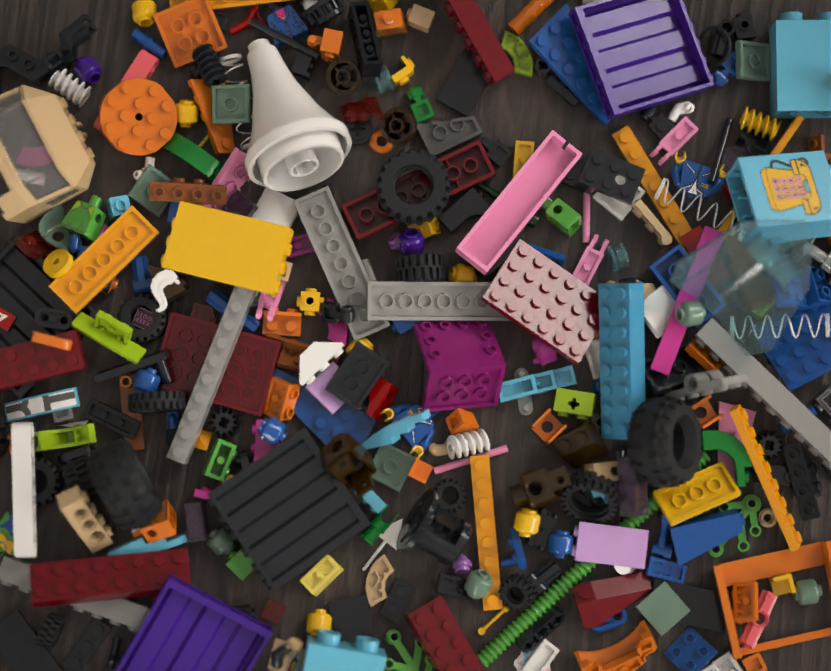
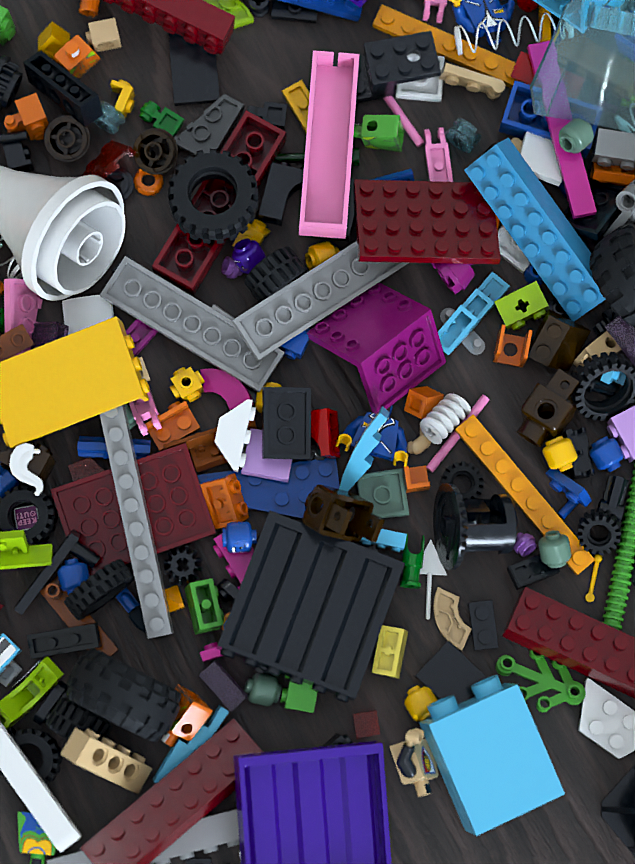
camera: 35 degrees left, 5 degrees down
(333, 313) = (217, 378): black plate -> none

